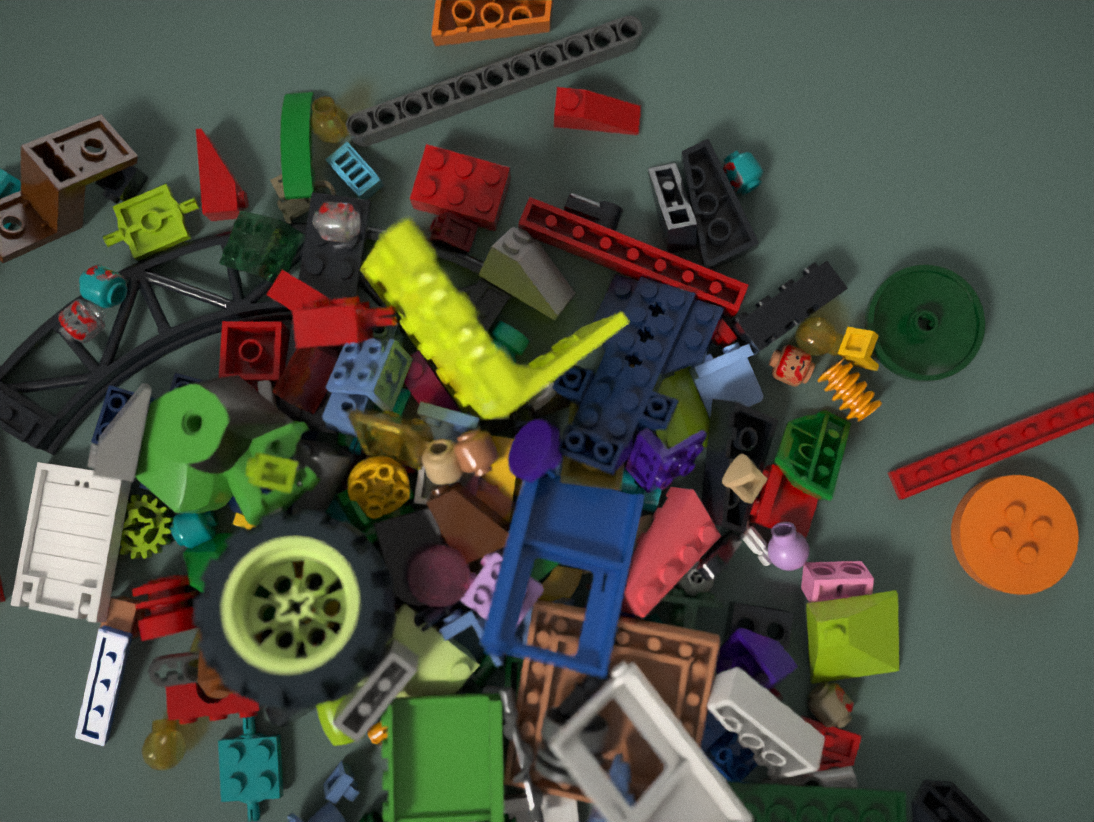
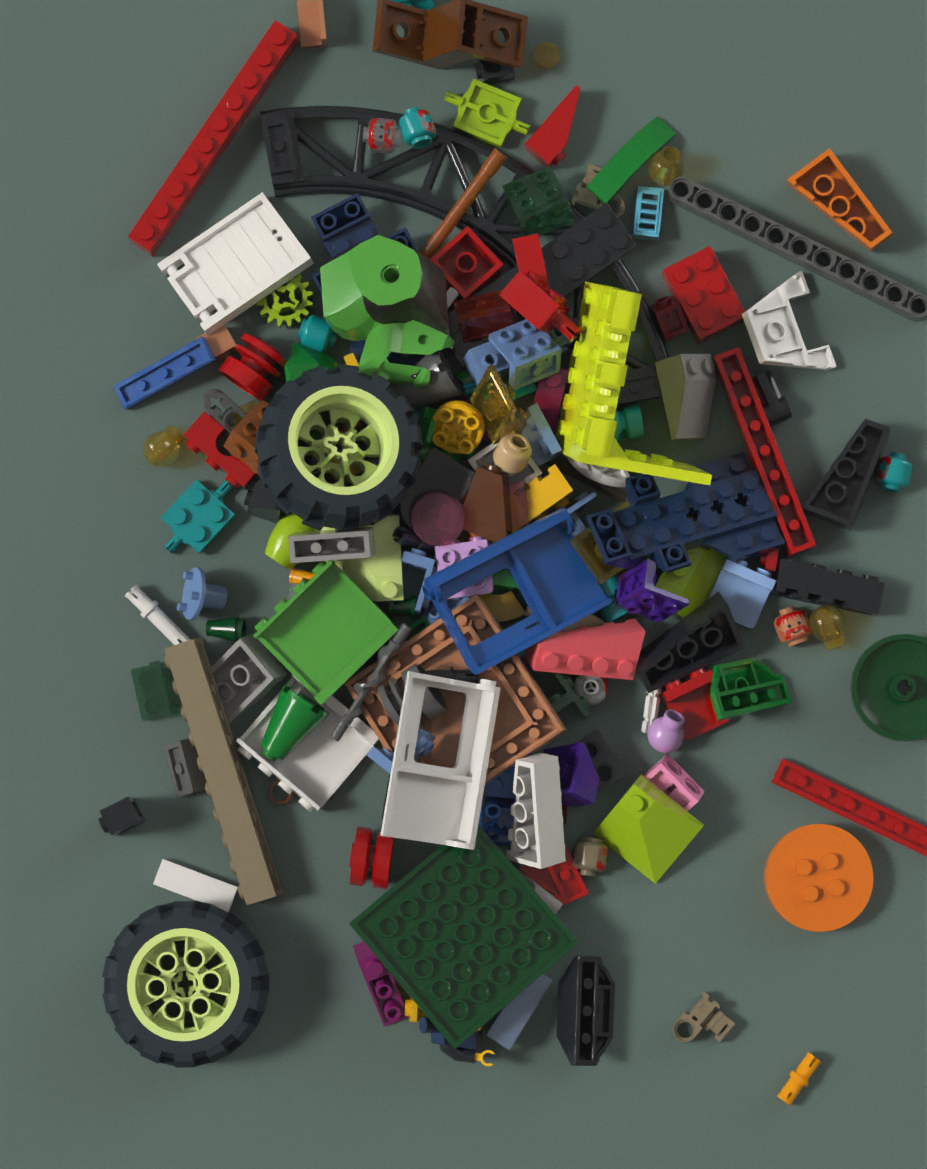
camera: 50 degrees right, 0 degrees up
(121, 440) = (337, 237): light grey slope -> none
(153, 134) = (546, 55): none -> clear yellow tile
(192, 262) = (486, 172): none -> dark orange piece
(271, 472) = (406, 351): lime bracket -> none
(337, 221) = (602, 240): clear head -> none
(341, 783) = (243, 582): medium blue tile -> none
(476, 451) = (538, 467): nougat head -> none
(525, 415) = (588, 481): black bush -> none
(534, 450) = (574, 503): dark purple tile -> none
(547, 158) = (776, 332): none -> white wing
(595, 112) = (842, 336): red slope -> none
(673, 208) = (825, 448): black slope -> none
(718, 556) = (619, 689): black beam -> none
(744, 478) = (683, 658): tan tile -> none
(849, 390) = (810, 678): light orange piece -> none
(858, 348) = (843, 657): yellow panel -> none
(1043, 732) = (704, 1014): none -> dark tan piece

